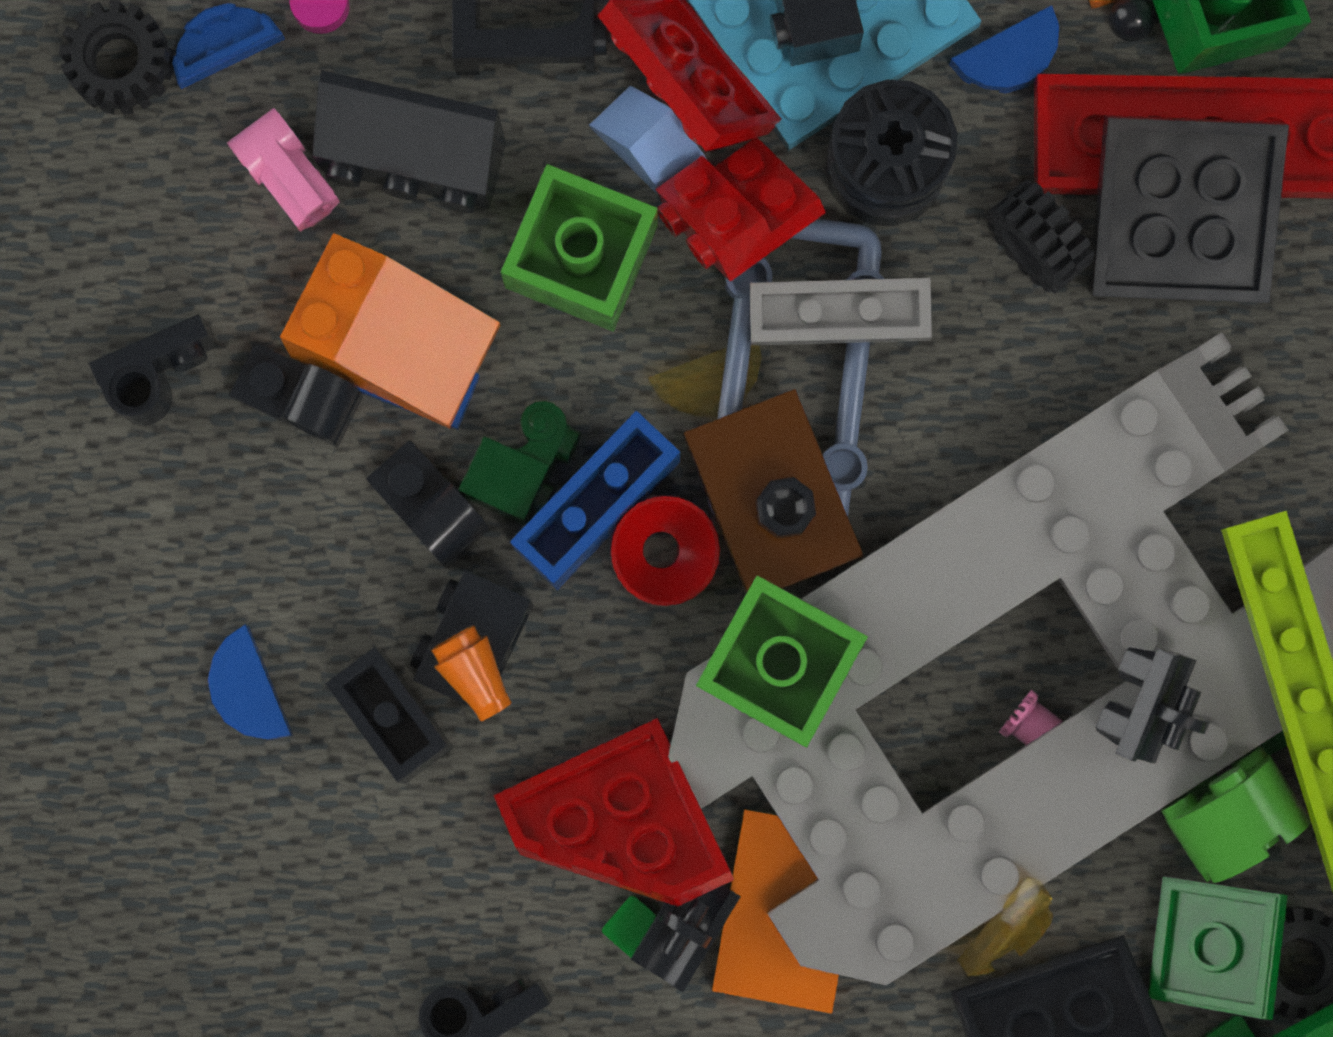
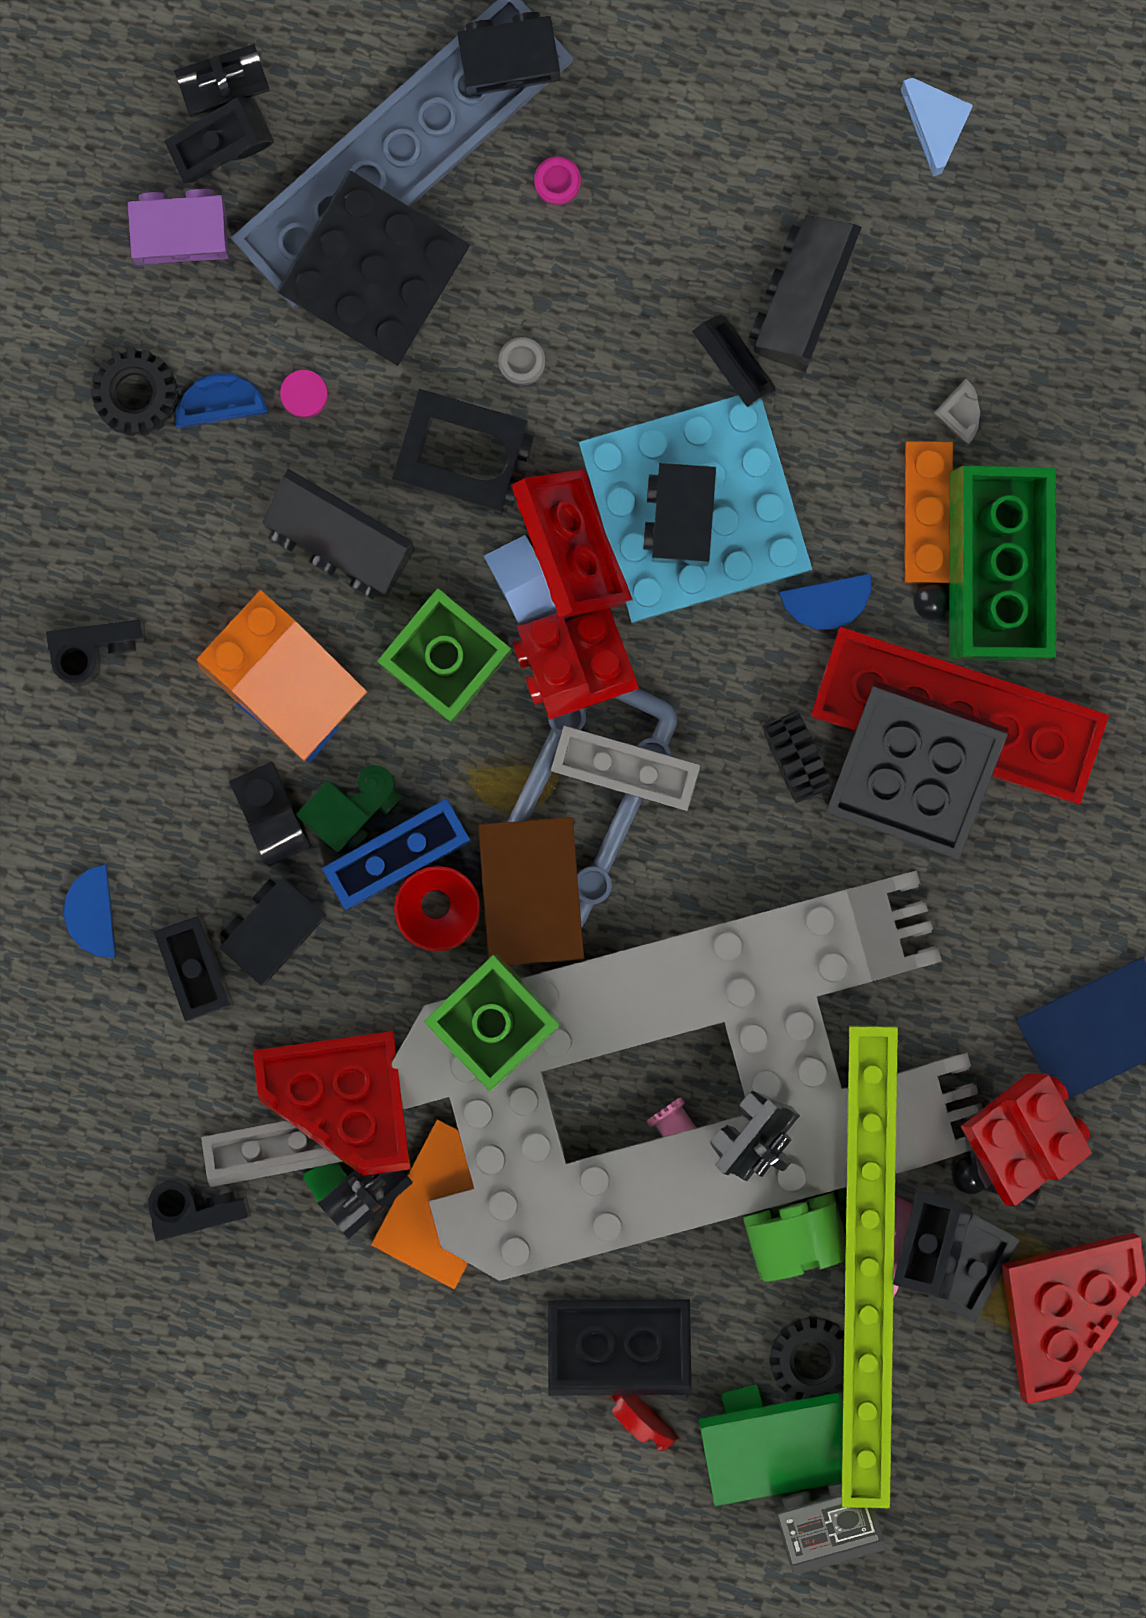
camera: 20 degrees right, 5 degrees up
(278, 161) = (234, 512): bright pink piece -> none
(297, 394) = (195, 699): black plate -> none
(472, 671) = (264, 955): orange cone -> none
(542, 919) = (261, 1153): none -> light grey plate
(785, 507) = (535, 906): black tile -> none
(864, 172) = (680, 671): black wheel -> none
(1016, 927) = (611, 1268): clear yellow tile -> none
(1217, 947) = (753, 1329): green tile -> none

